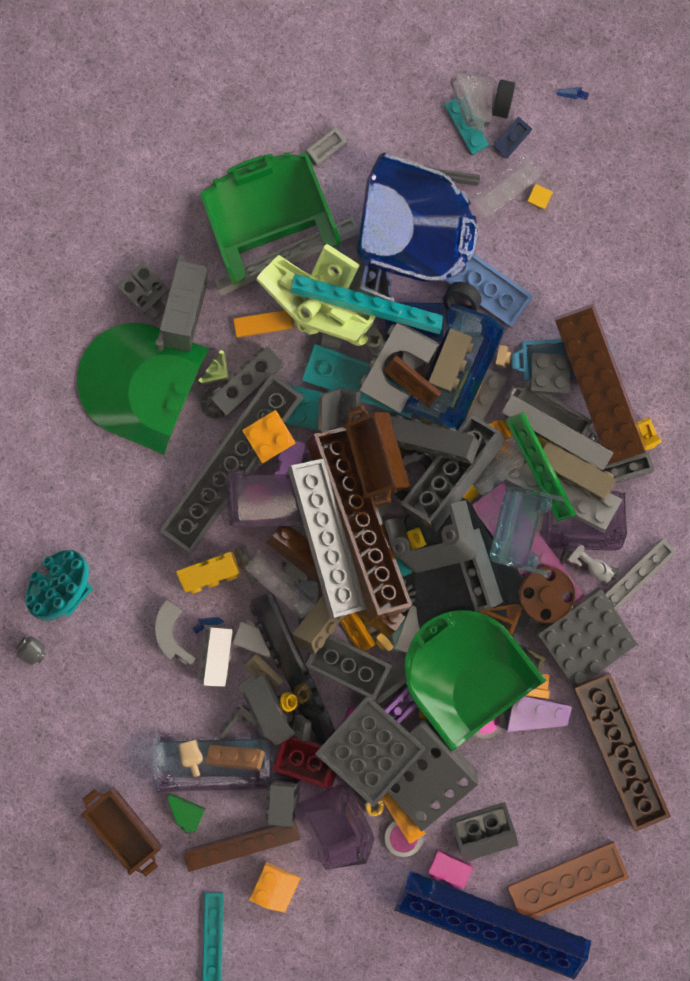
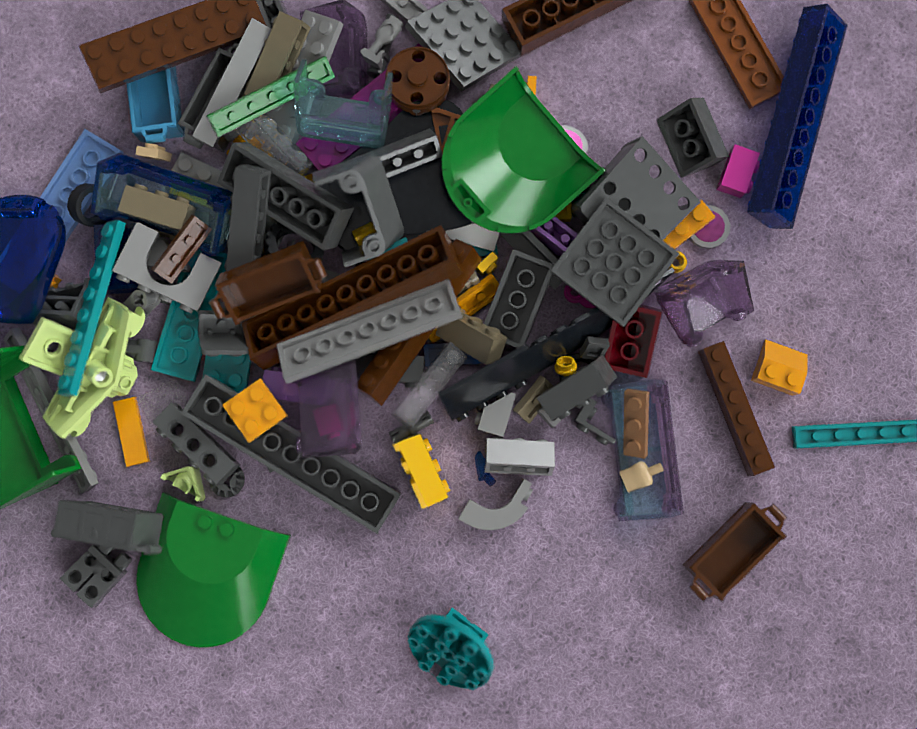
camera: 85 degrees left, 5 degrees down
(31, 650) = (531, 677): dark grey head -> none
(186, 812) = (705, 476): green slope -> none
(283, 800) = (683, 362): dark grey brick -> none
(536, 714) = (555, 87): medium lavender wedge -> none
(550, 373) = (167, 97): dark grey plate -> none

